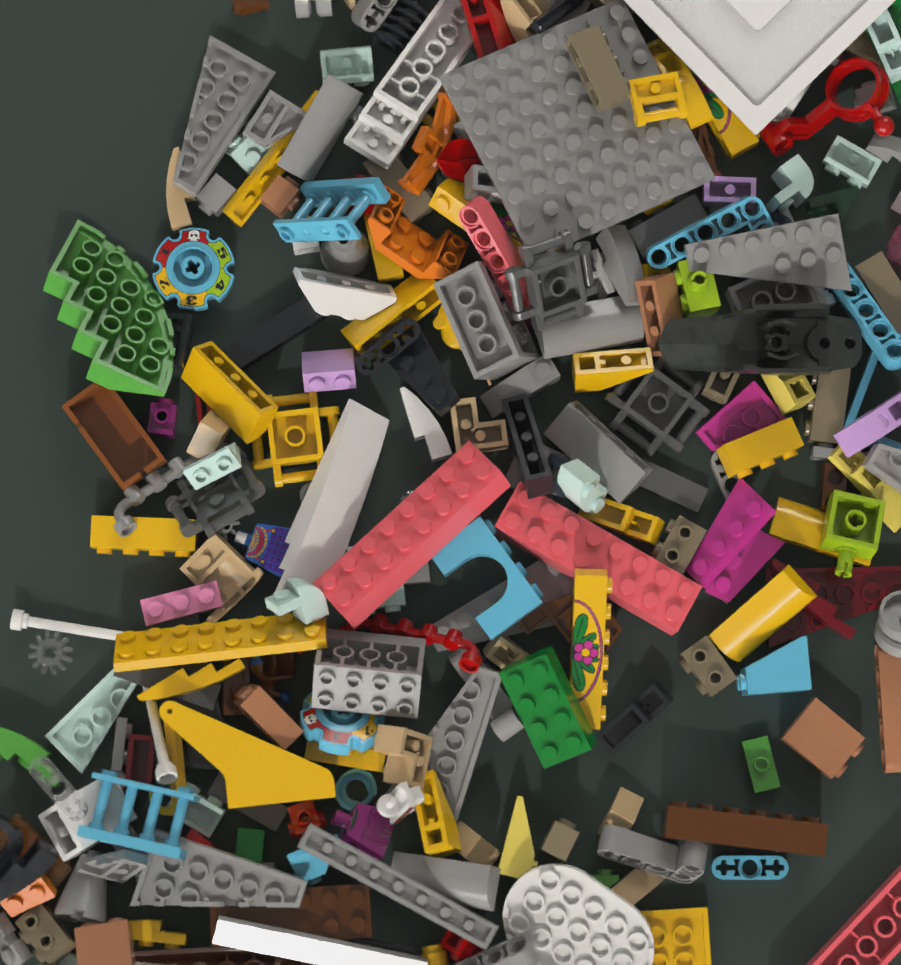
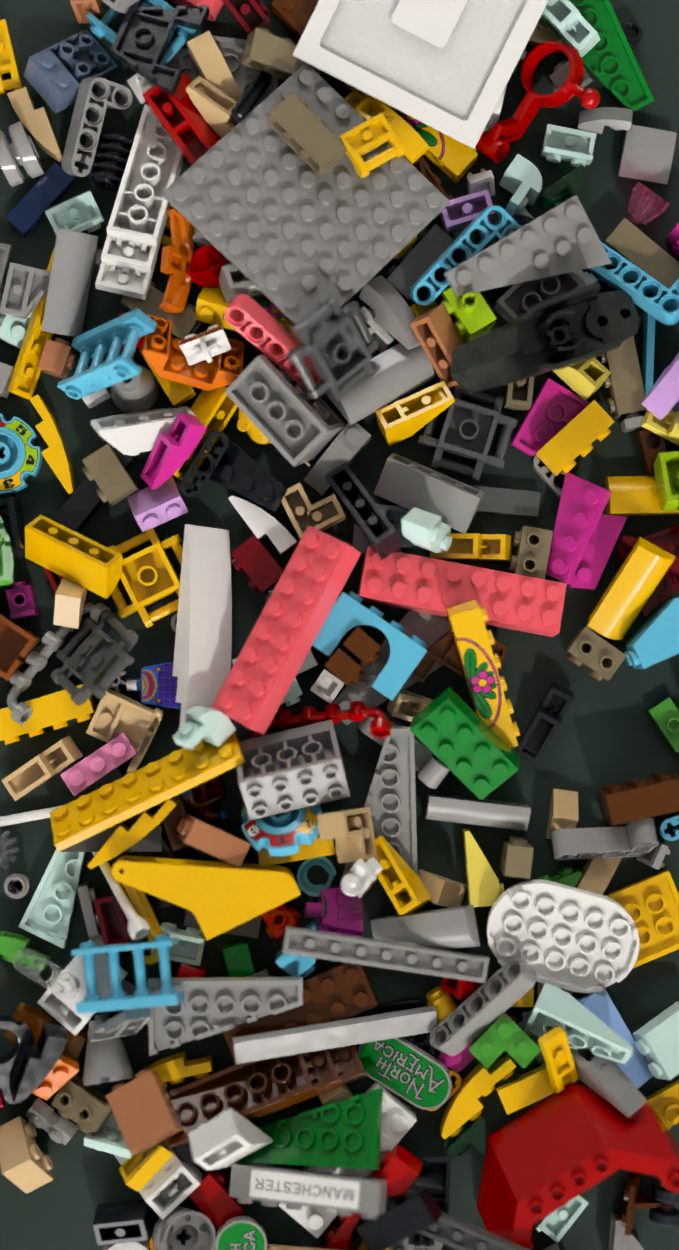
camera: 20 degrees left, 5 degrees up
(52, 693) = (12, 888): none -> light grey cone
(123, 588) = (42, 768): none -> tan slope
(213, 466) = (82, 630): light aqua bracket -> none
(248, 287) = (57, 453): none -> yellow slope
(293, 326) = (109, 475): none -> dark tan brick
(319, 37) = (40, 198): none -> dark blue tile
(363, 322) = (172, 449): none -> dark pink slope
(405, 462) = (257, 563): none -> dark red piece
(429, 233) = (205, 345): none -> white hips
(432, 605) = (327, 686): none -> white tile
(479, 577) = (344, 666): none -> reddish brown piece
(536, 782) = (477, 812): none -> light grey brick
(699, 888) = (655, 857): none -> light grey tile
(753, 168) = (481, 181): none -> white tile

